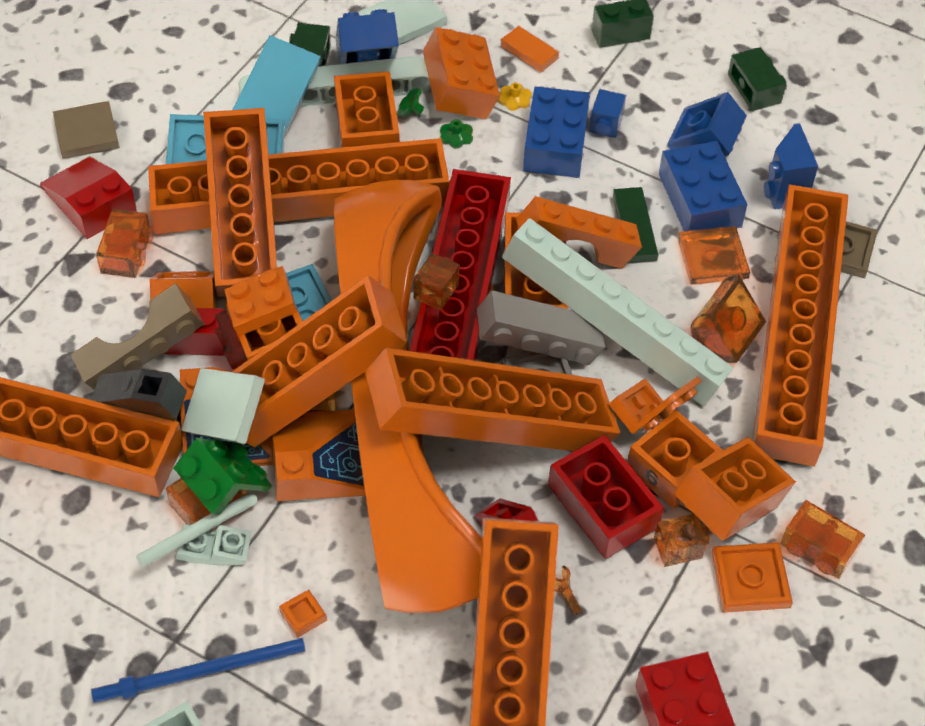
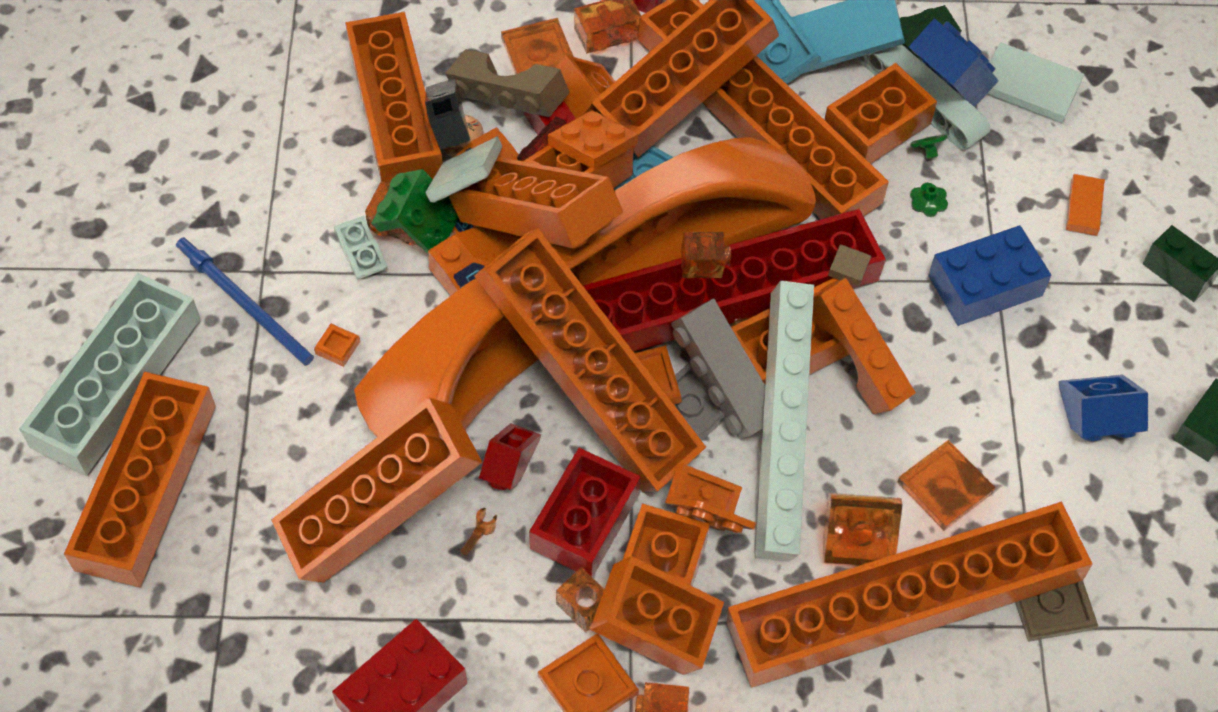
camera: 60 degrees right, 5 degrees up
(105, 308) = (536, 44): none -> clear orange tile
(195, 530) = (359, 225): light aqua bar -> none
(461, 73) = (991, 160): orange brick -> none
(505, 199) = (849, 265): none -> dark tan tile
(515, 96) = (1014, 217): yellow plant -> none
(607, 113) = (1050, 307): blue brick -> none
(632, 207) = (933, 398): dark green tile -> none
(702, 187) = (1017, 433): blue brick -> none
(791, 165) = (1100, 497): blue slope -> none

